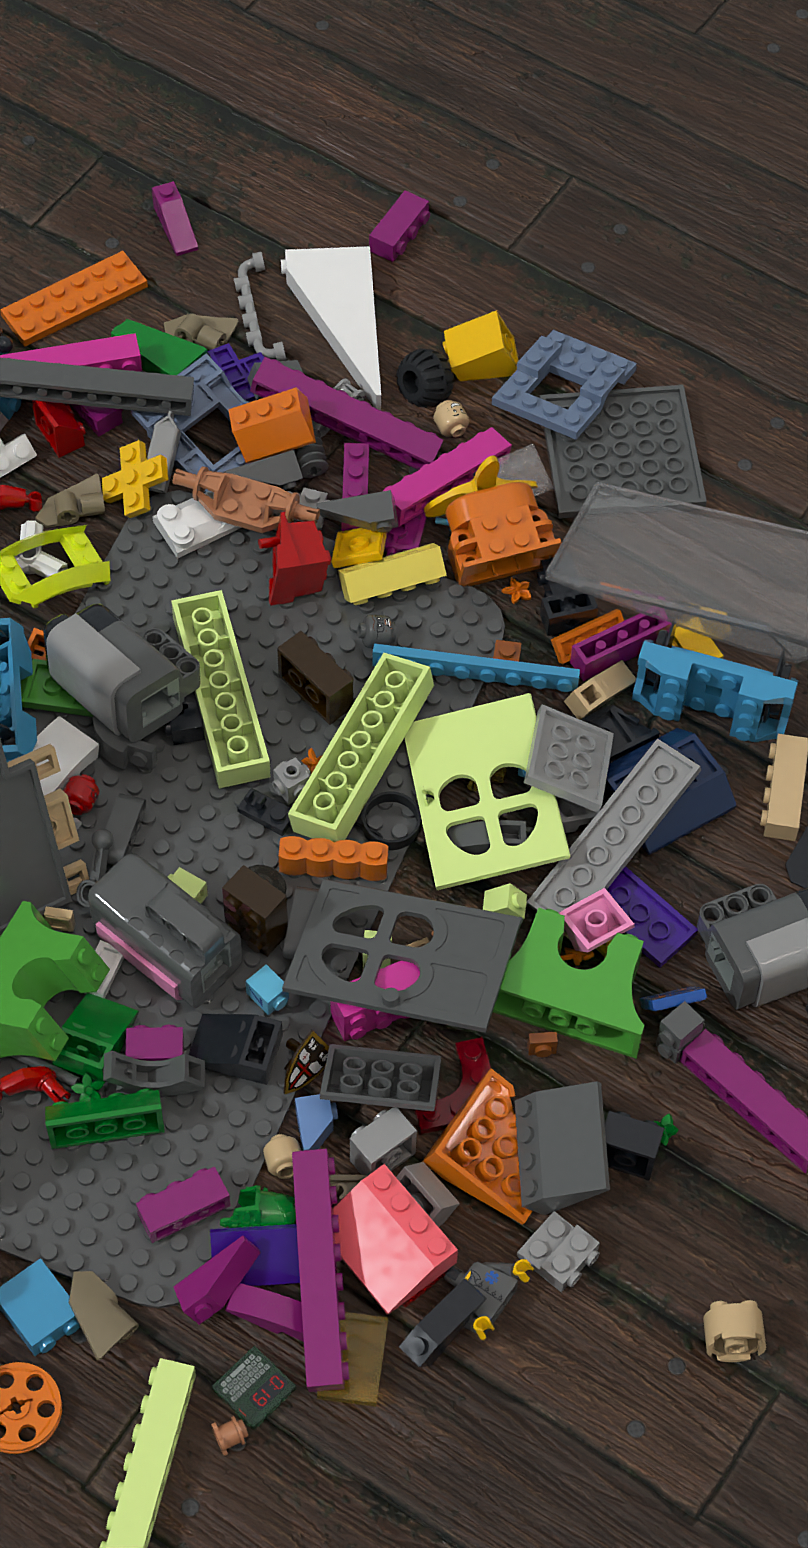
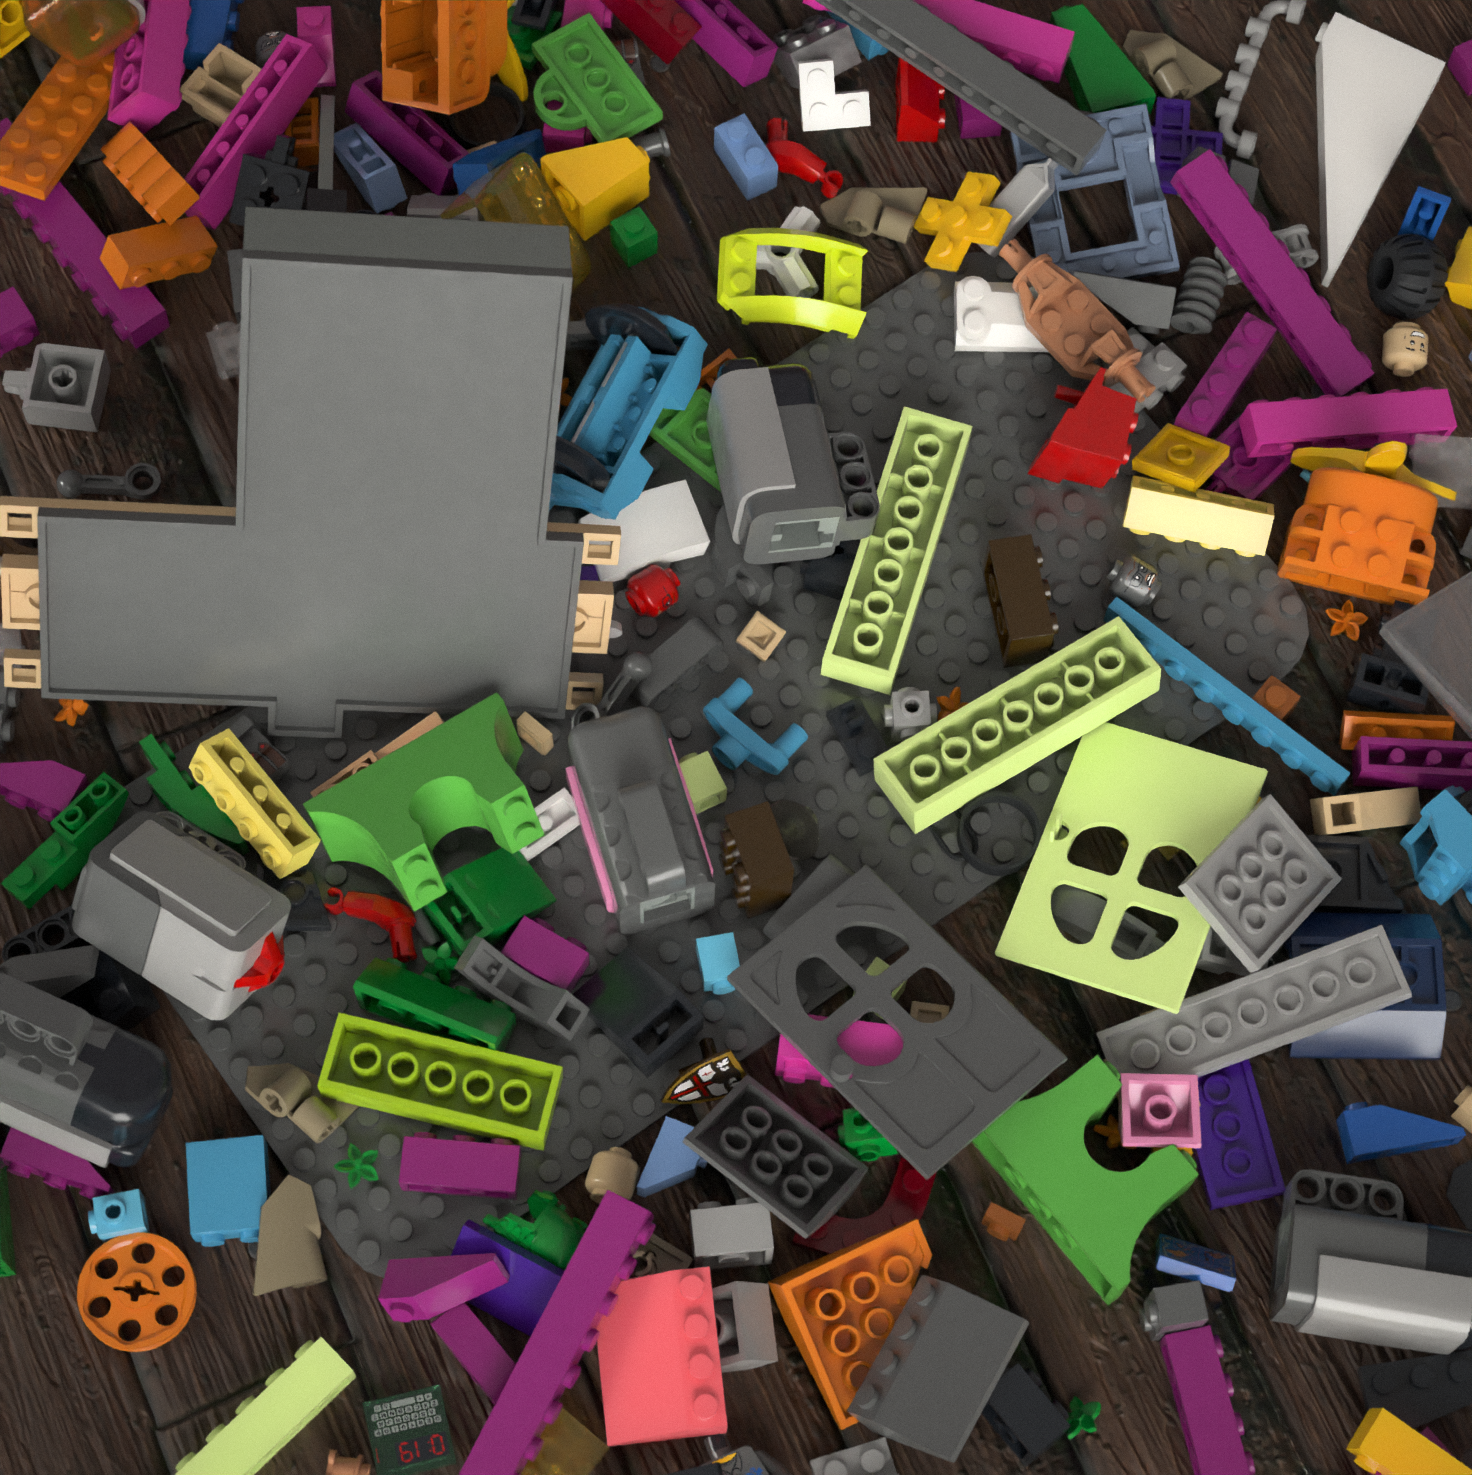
camera: 30 degrees right, 10 degrees up
(55, 1221) = (295, 1094): none -> dark tan panel
(114, 1243) = (358, 1165): none -> green plant
(136, 1157) = (440, 1081): none -> lime brick
(166, 785) = (760, 636): none -> tan tile
(196, 853) = (741, 742): none -> dark azure connector
(272, 425) = (1167, 243): orange slope -> none
(326, 858) = (890, 839): orange brick -> none
(366, 511) = (1217, 423): dark grey slope -> none
(414, 333) = (1424, 213): none -> blue slope
(426, 1037) = (862, 1138): none -> green brick
(506, 900) = (1067, 1020): yellowish green brick -> none
(735, 862) = (1387, 1132): none -> blue slope

